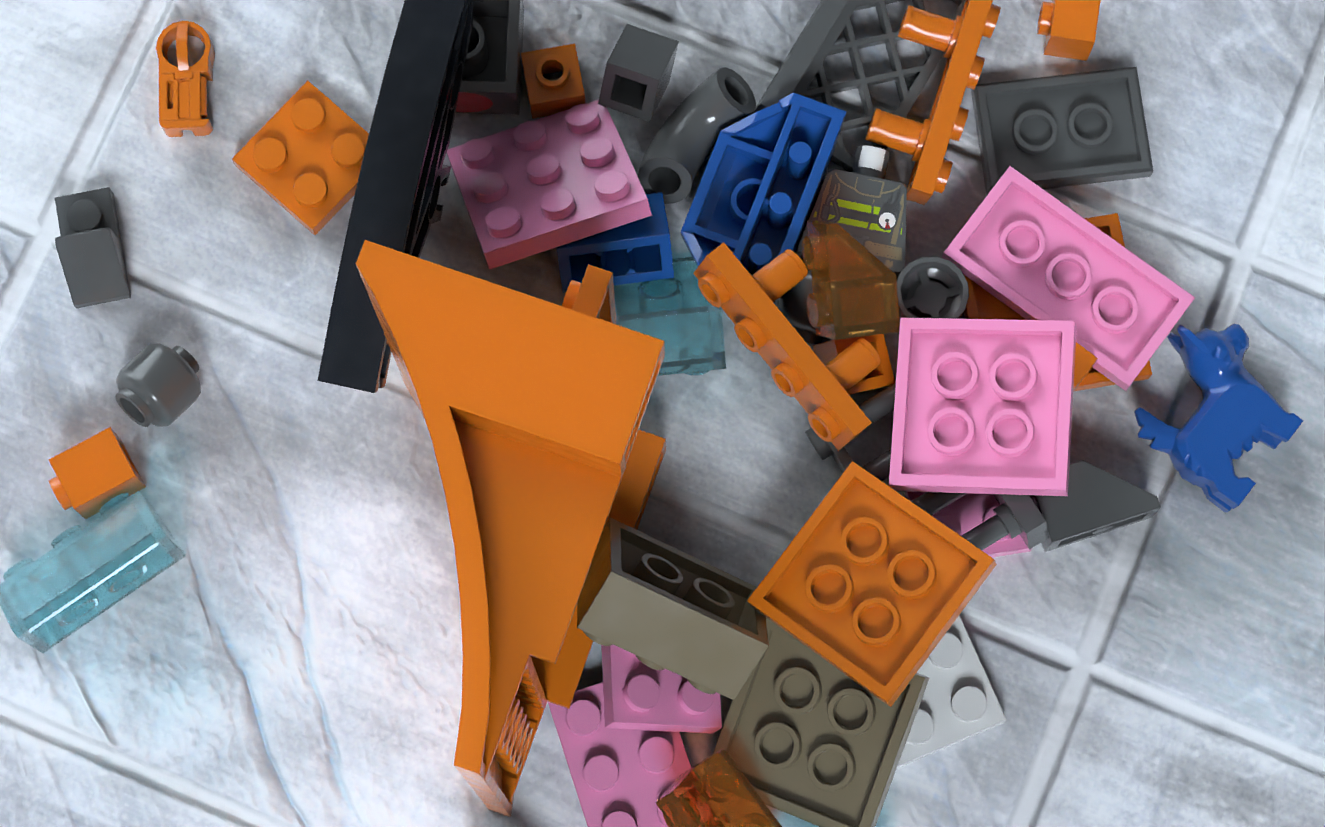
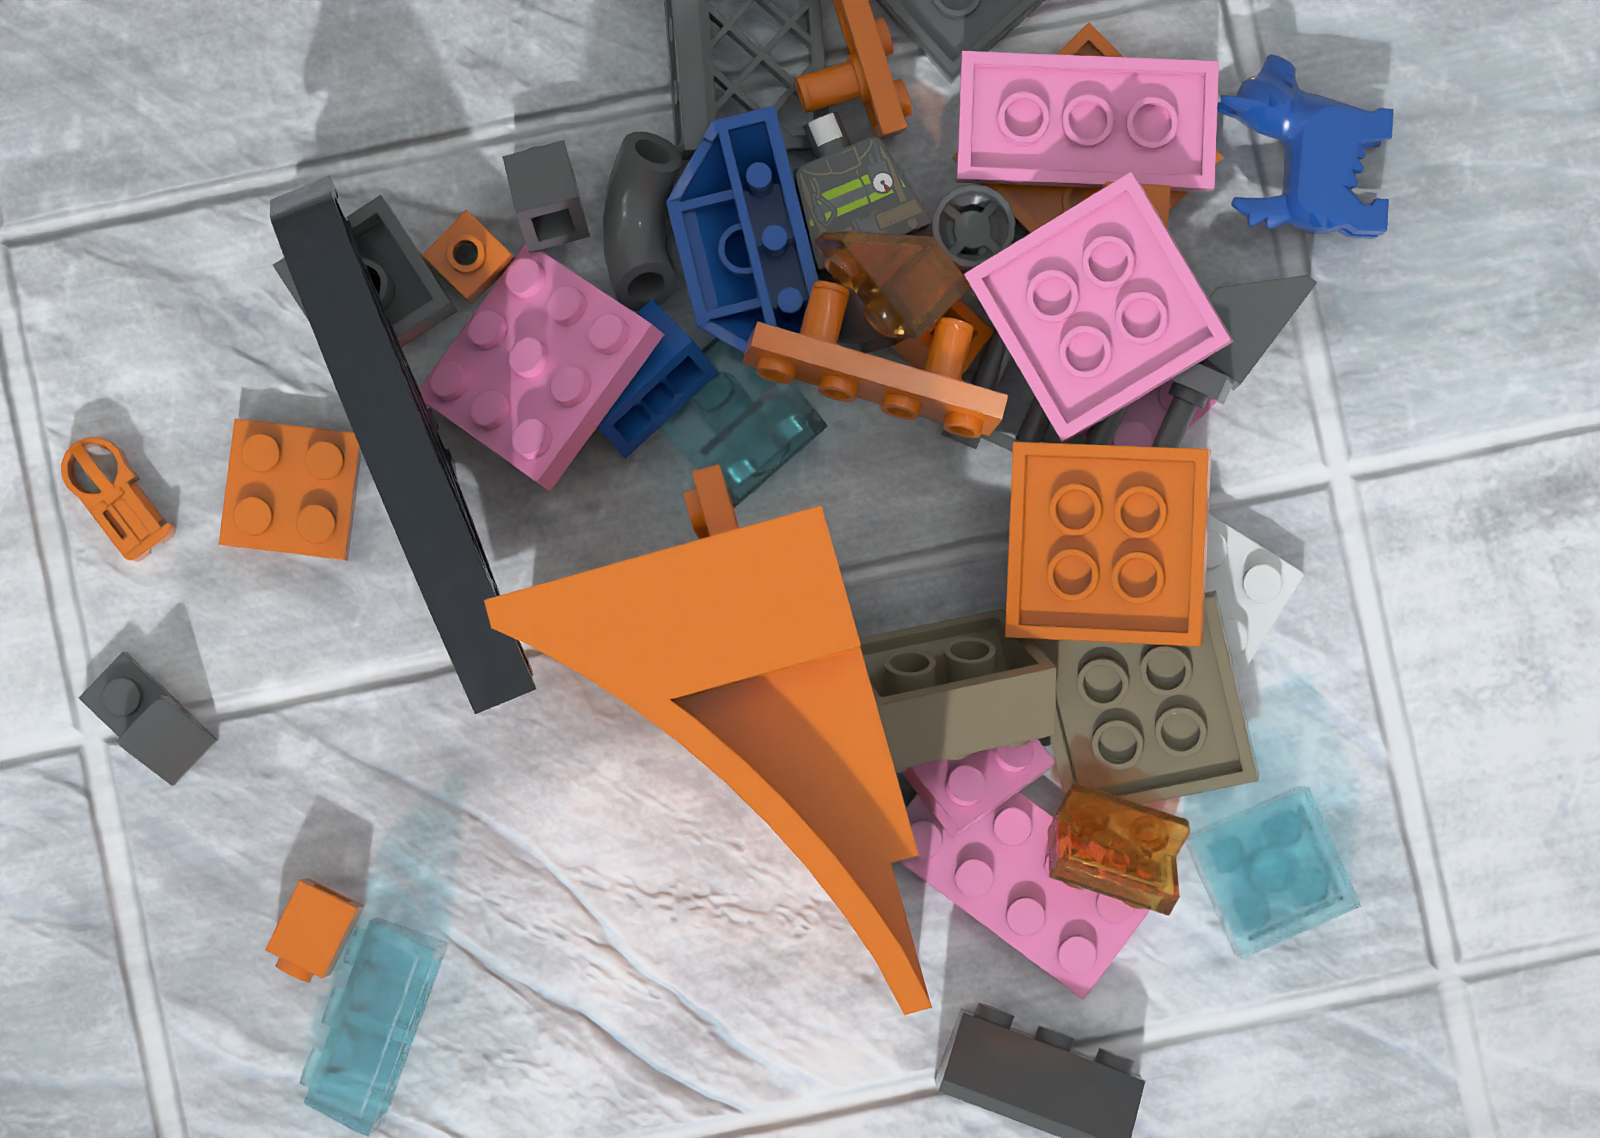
camera: 30 degrees left, 10 degrees up
(158, 385) = (310, 807): dark grey head -> none

